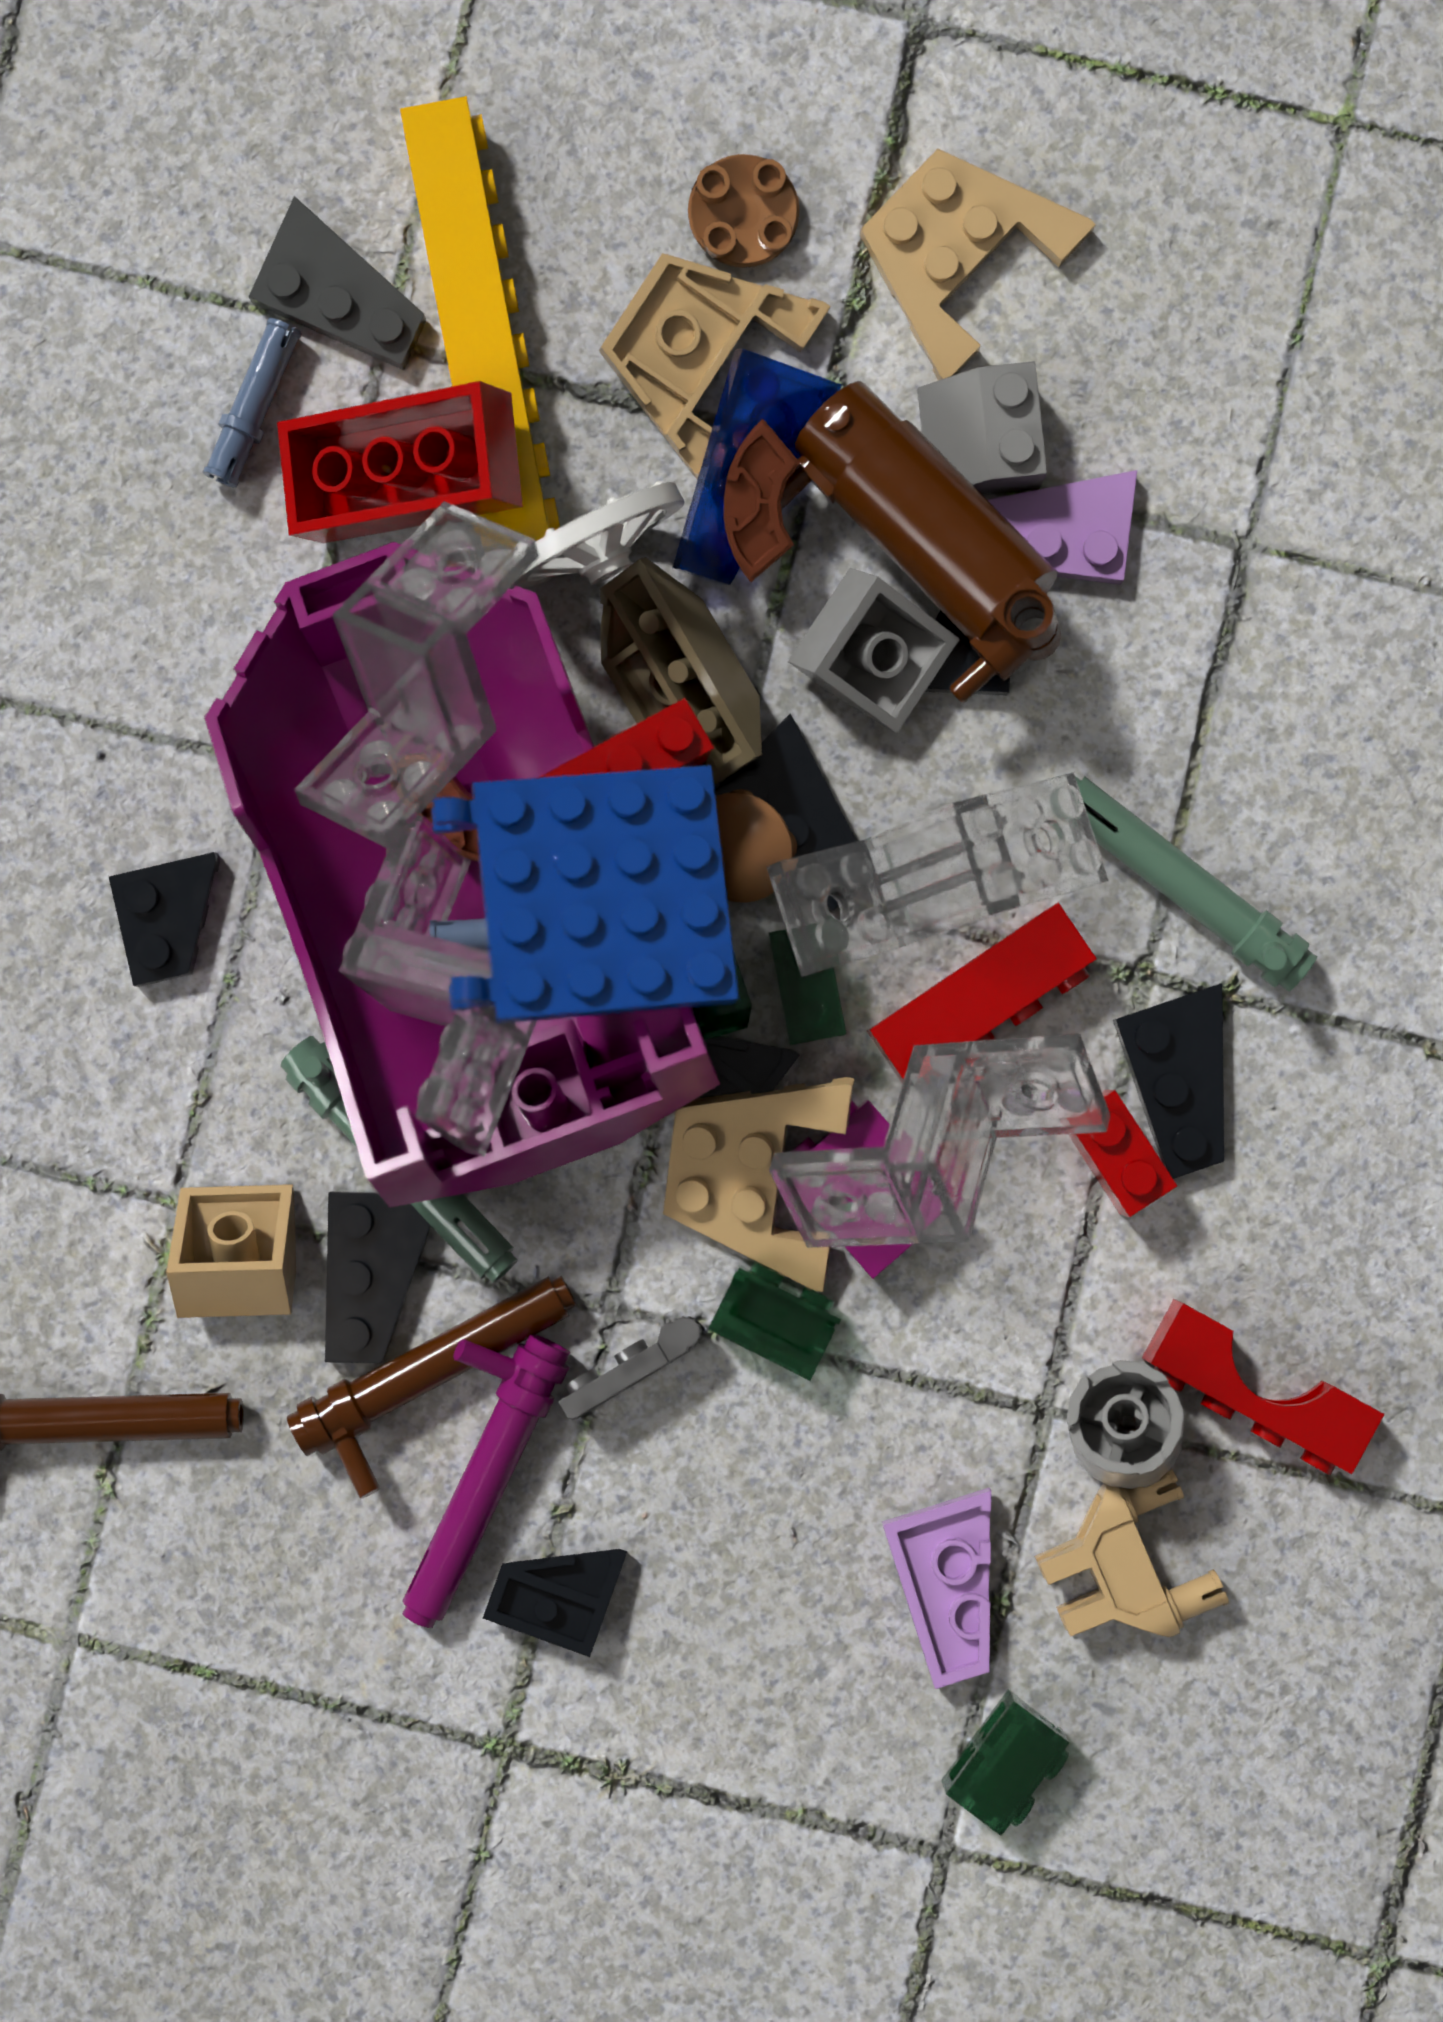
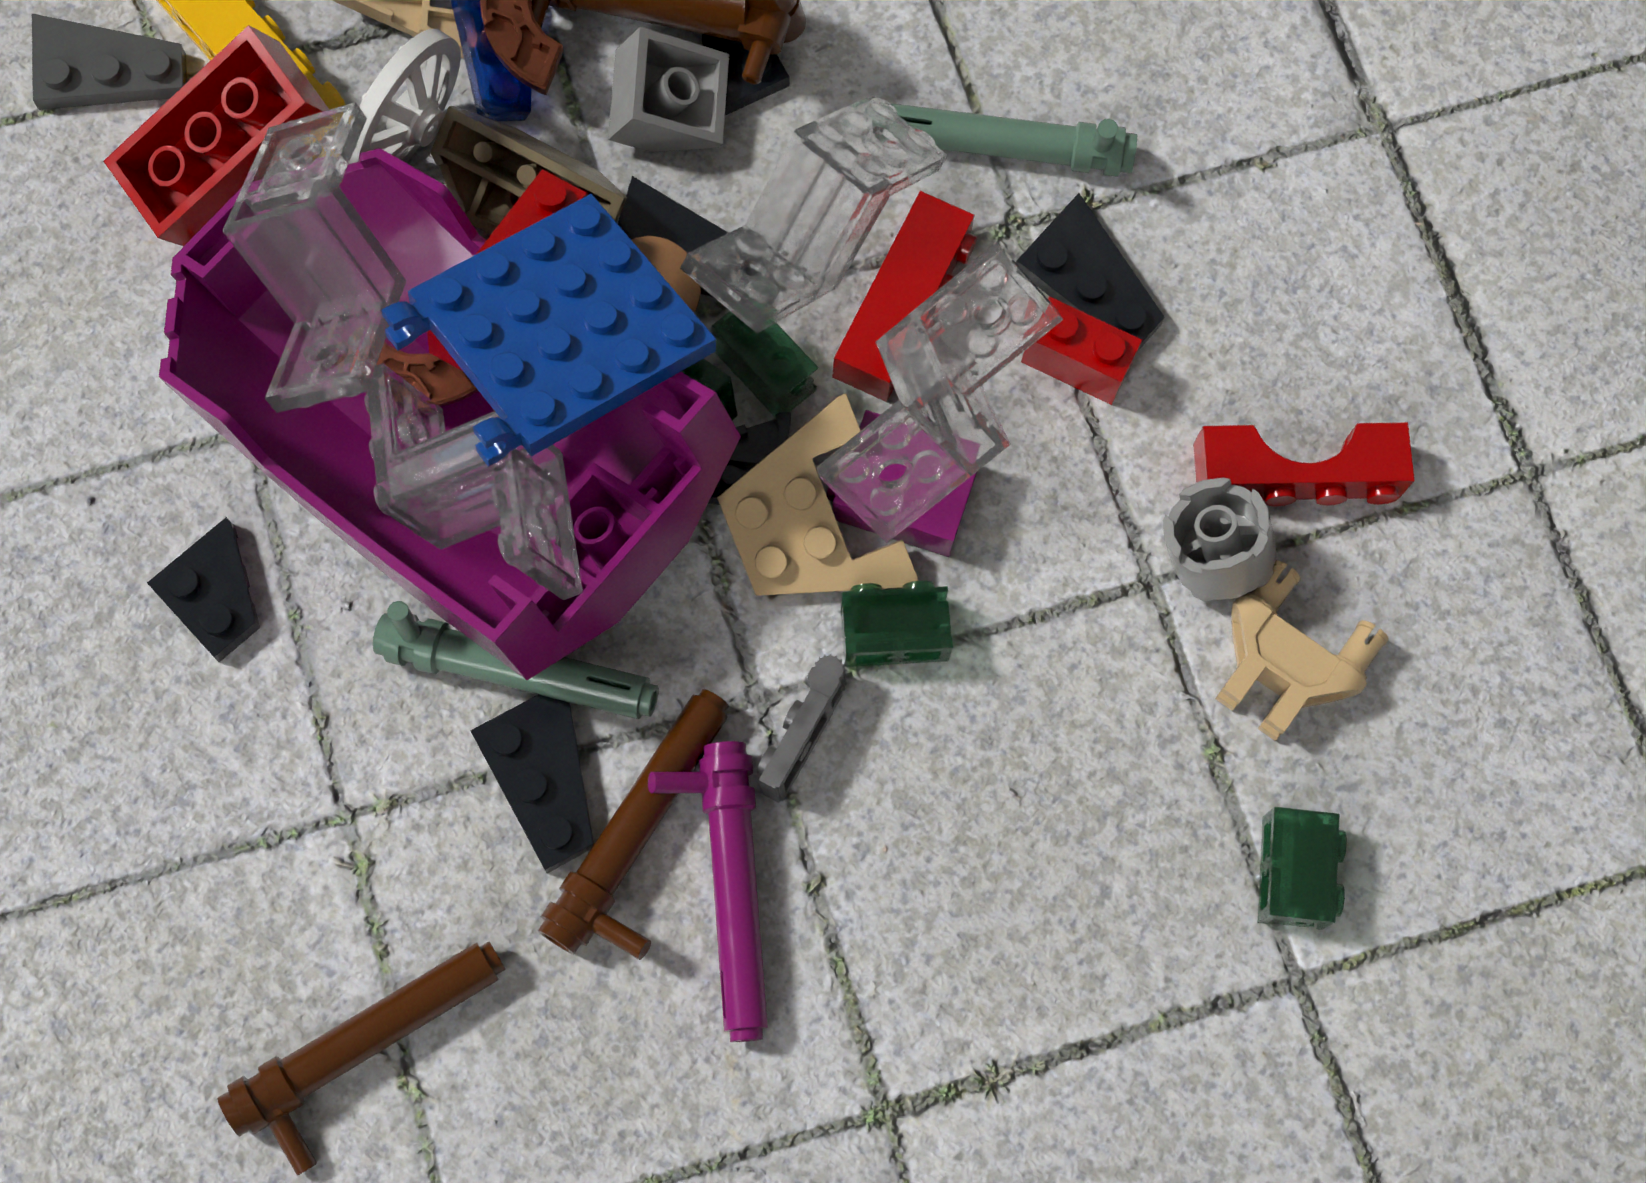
camera: 35 degrees left, 15 degrees down
(233, 1251) = (417, 823): tan slope -> none
(243, 423) = (77, 191): sand blue pin -> none
(557, 1597) = (853, 953): black wing -> none
(945, 1579) = (1157, 753): lavender wing -> none

